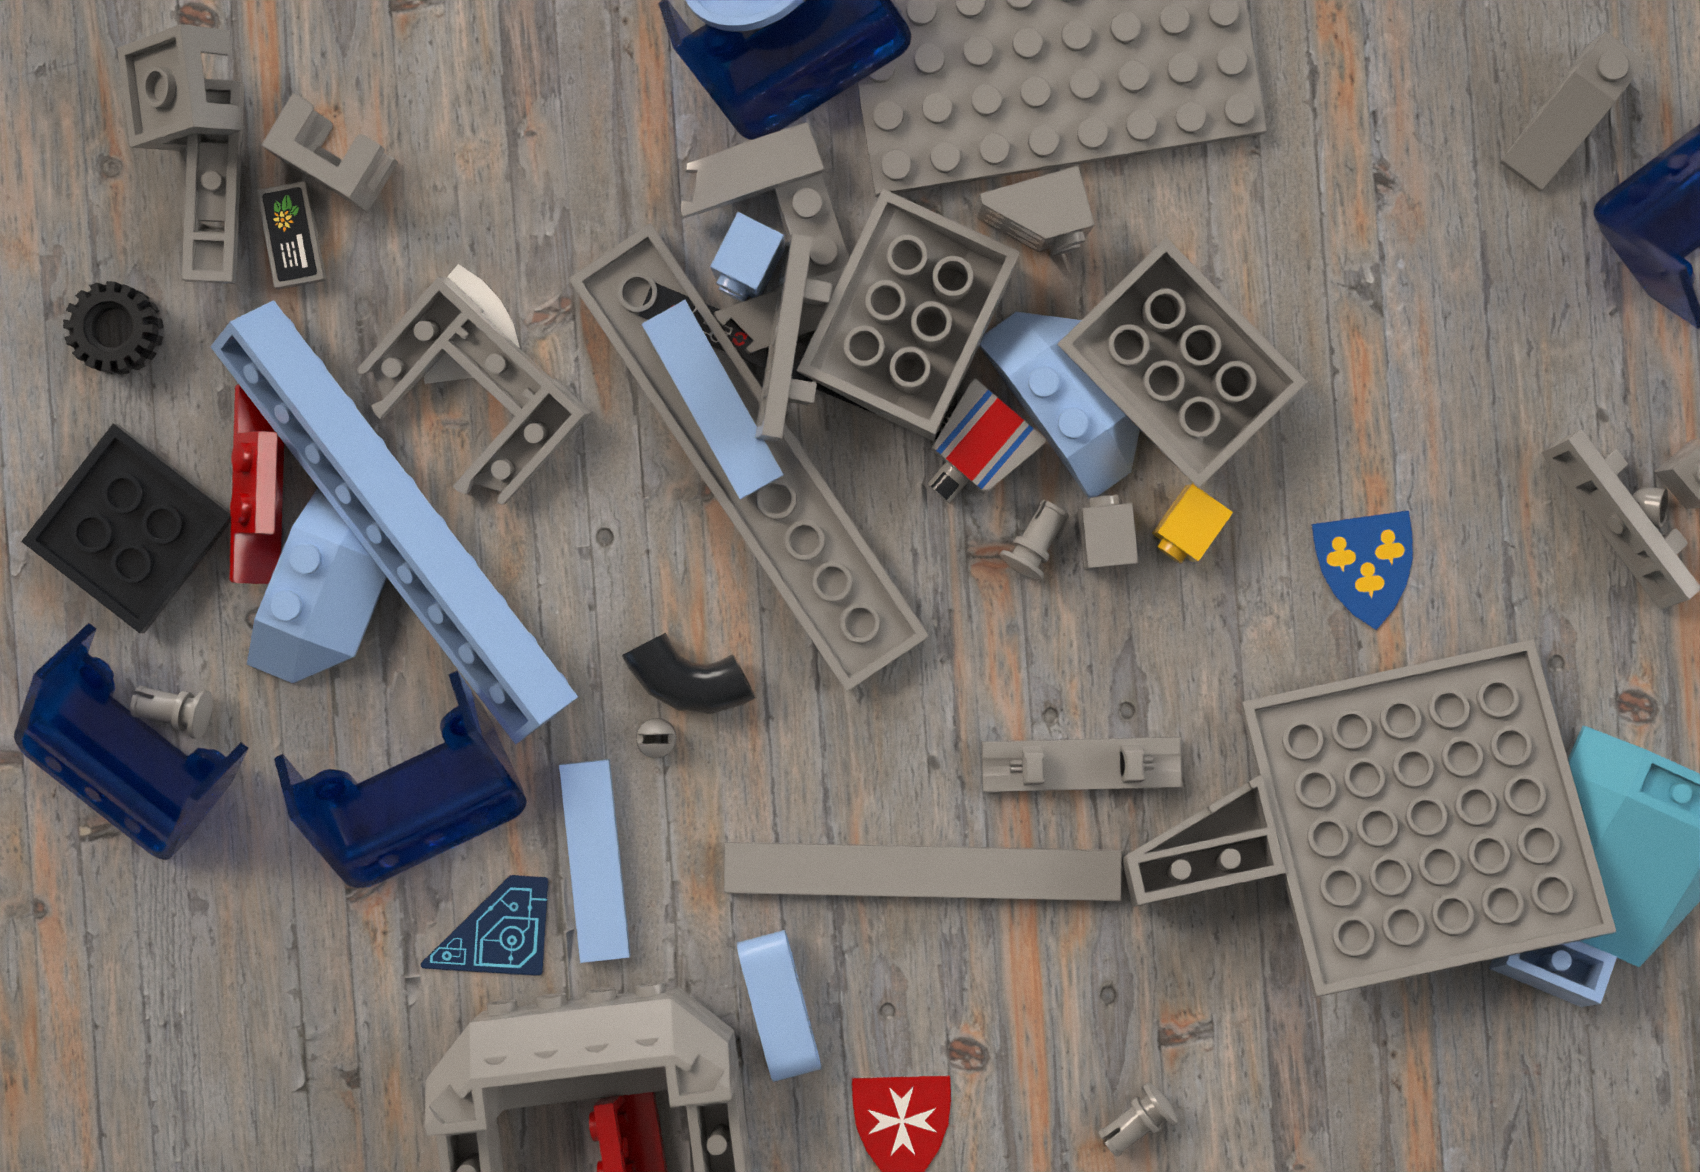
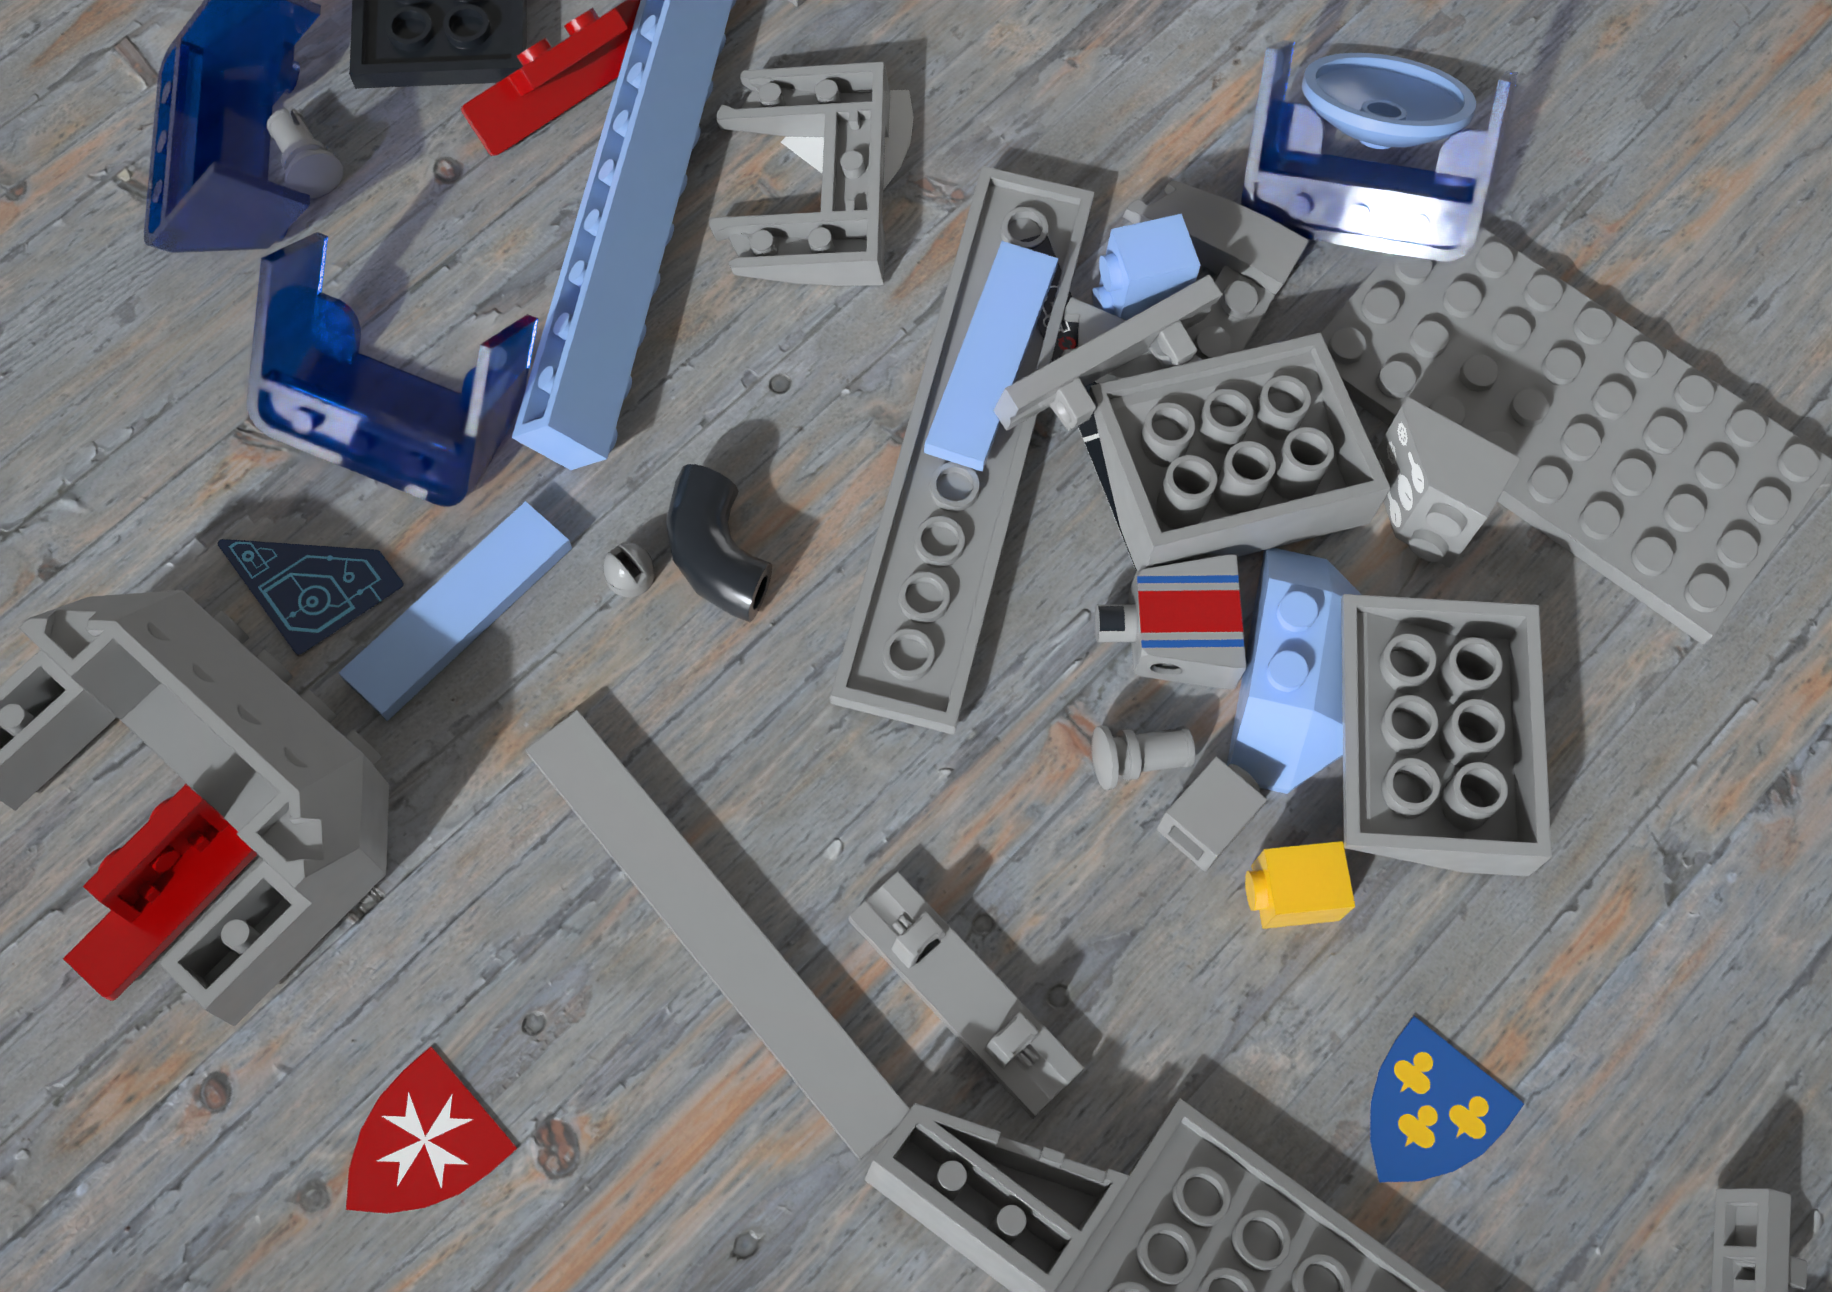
camera: 40 degrees right, 20 degrees down
(315, 597) = (502, 180): light blue wedge -> none
(778, 1005) = (447, 899): light blue beam -> none

